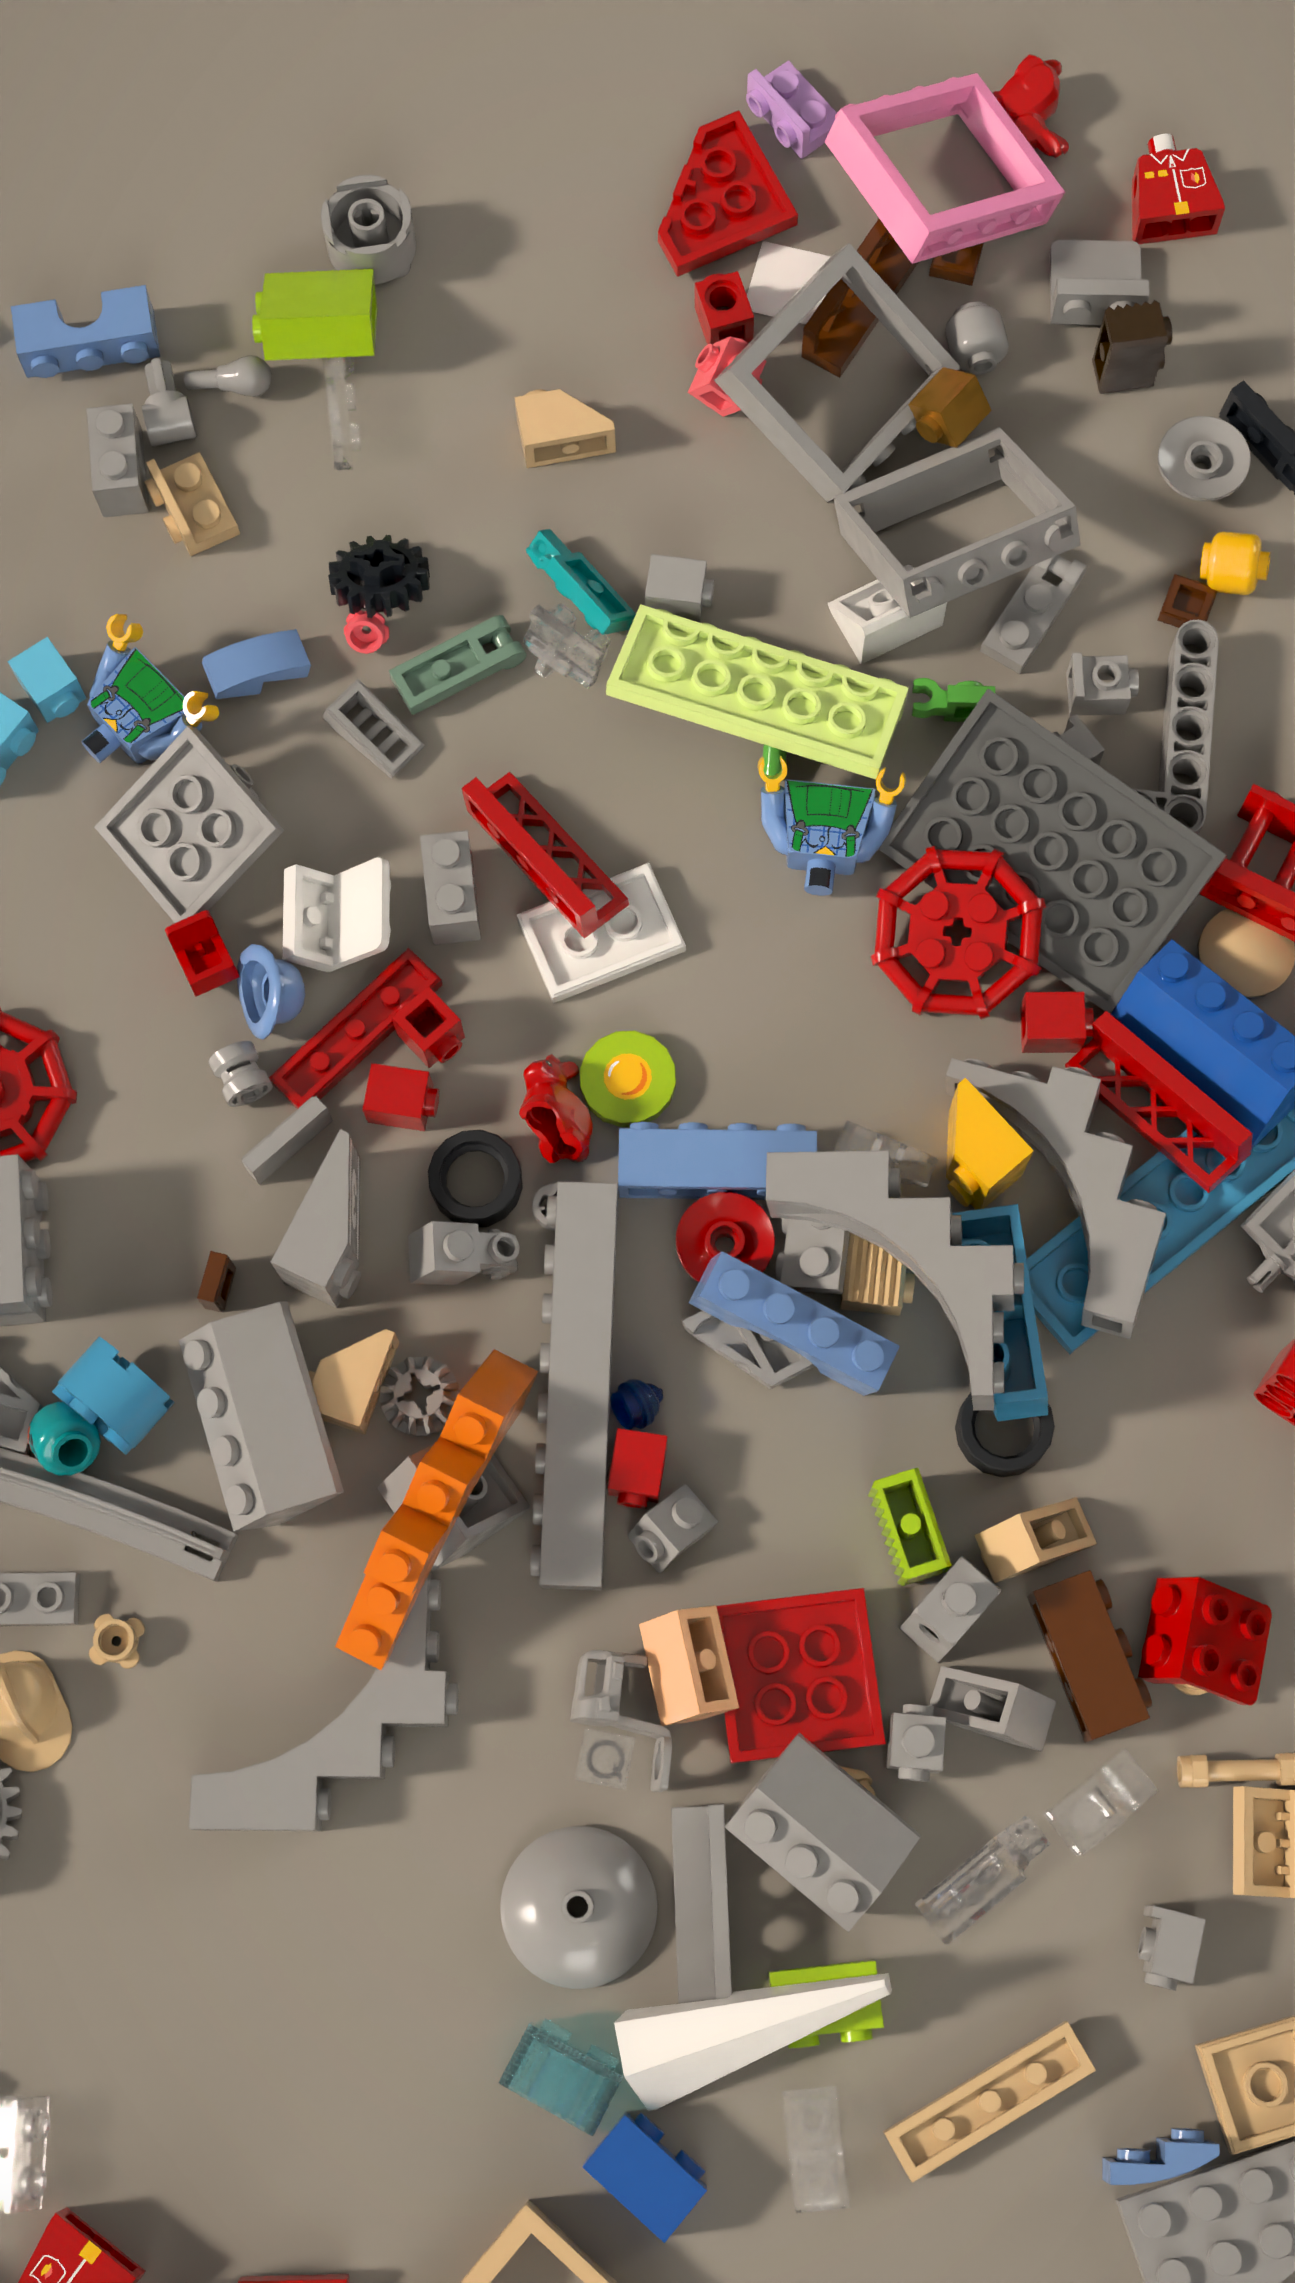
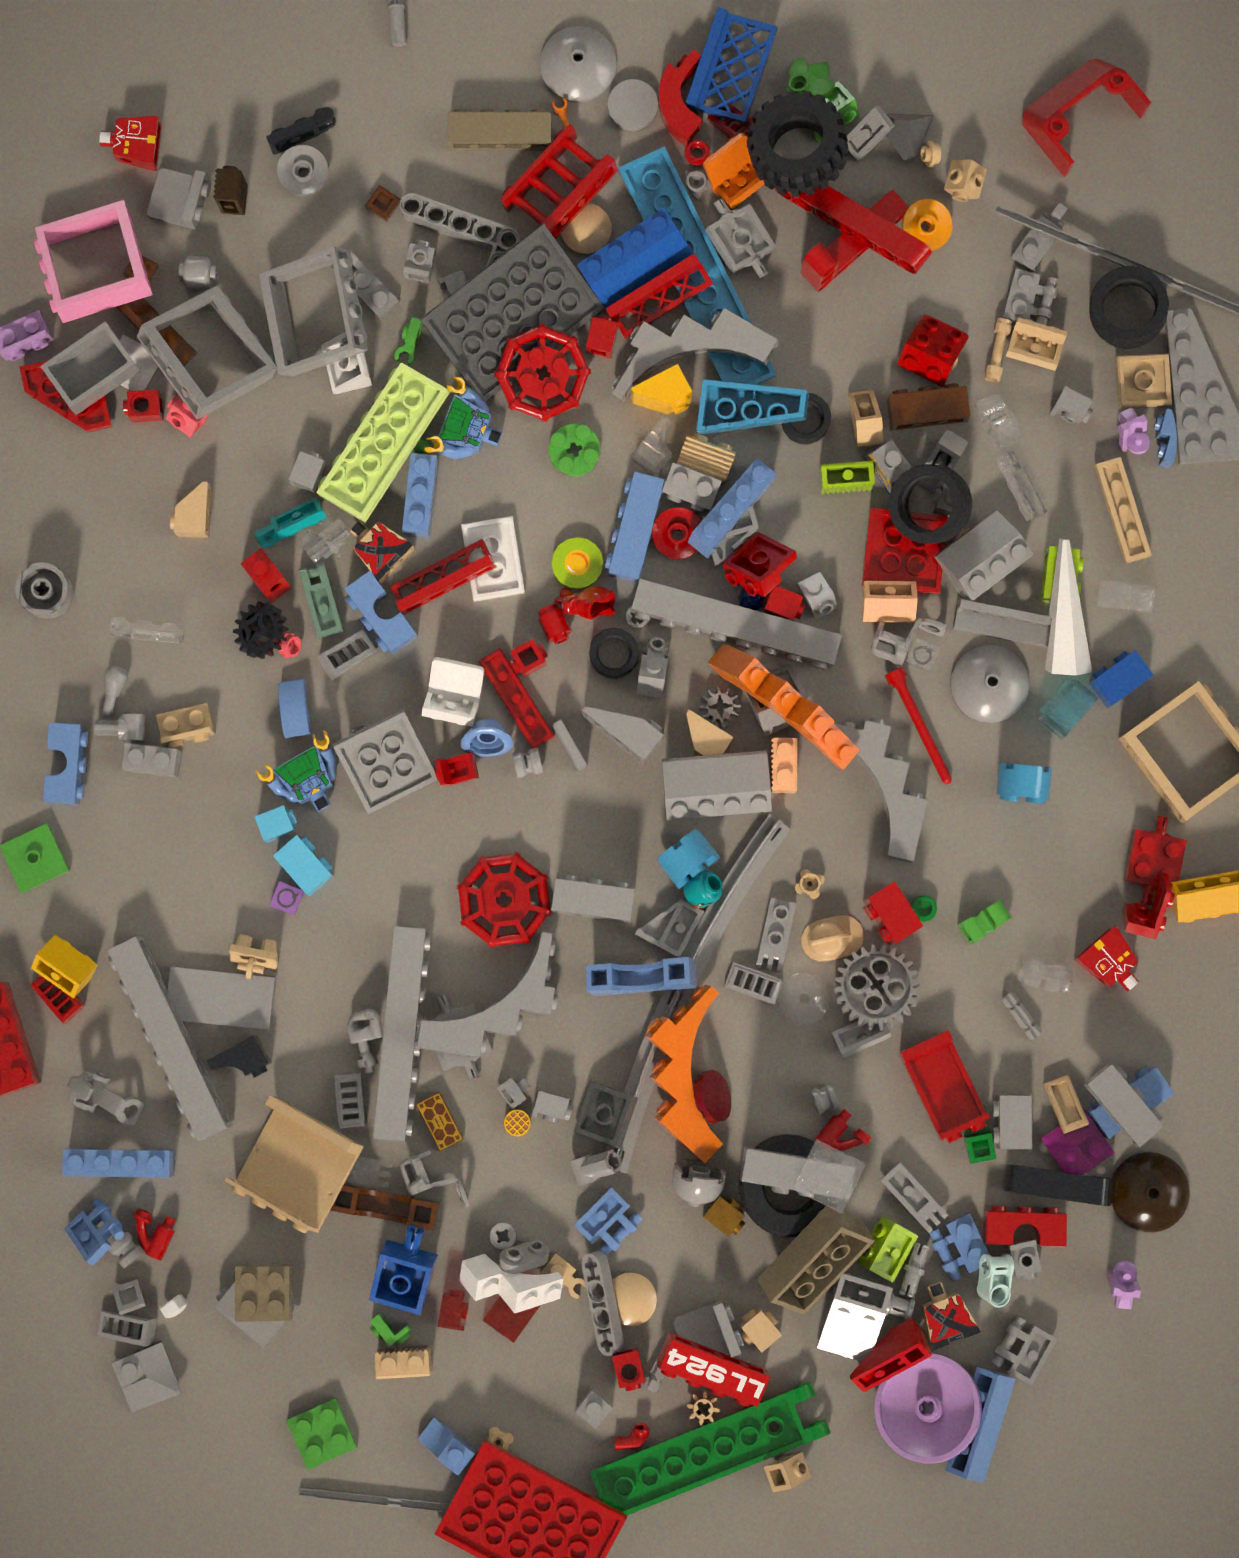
camera: 80 degrees left, 10 degrees up
(75, 1810) = (892, 914): none -> red brick
(102, 2006) = (985, 921): none -> bright green leg
(110, 1875) = (924, 908): none -> green tile
(216, 1282) = (637, 796): reddish brown tile -> none
(316, 314) = (92, 630): lime brick -> none
(326, 1536) = (783, 765): none -> light nougat brick
(388, 2018) = (1024, 781): none -> dark azure brick
(400, 1097) = (561, 682): red brick -> none
(450, 887) = (451, 630): light grey brick -> none
(476, 732) = (392, 632): none -> medium blue arch
(481, 552) = (266, 575): none -> red torso
(503, 1061) = (554, 624): none -> red brick
(542, 1722) = (898, 680): none -> red piece
(567, 738) = (380, 549): none -> torso
(681, 779) = (420, 495): none -> medium blue brick
(699, 1398) = (758, 564): none -> red plate
(758, 200) = (90, 368): none -> light grey piece
(839, 998) = (580, 436): none -> bright green plate
(864, 1197) = (741, 413): light grey arch -> none
(878, 1638) = (900, 496): none -> black tyre
(949, 407) = (242, 297): pearl gold brick -> none
(1033, 98) = (56, 203): red animal -> none
(1150, 2084) = (1133, 432): none -> lavender hips
(1234, 563) = (368, 172): yellow head -> none

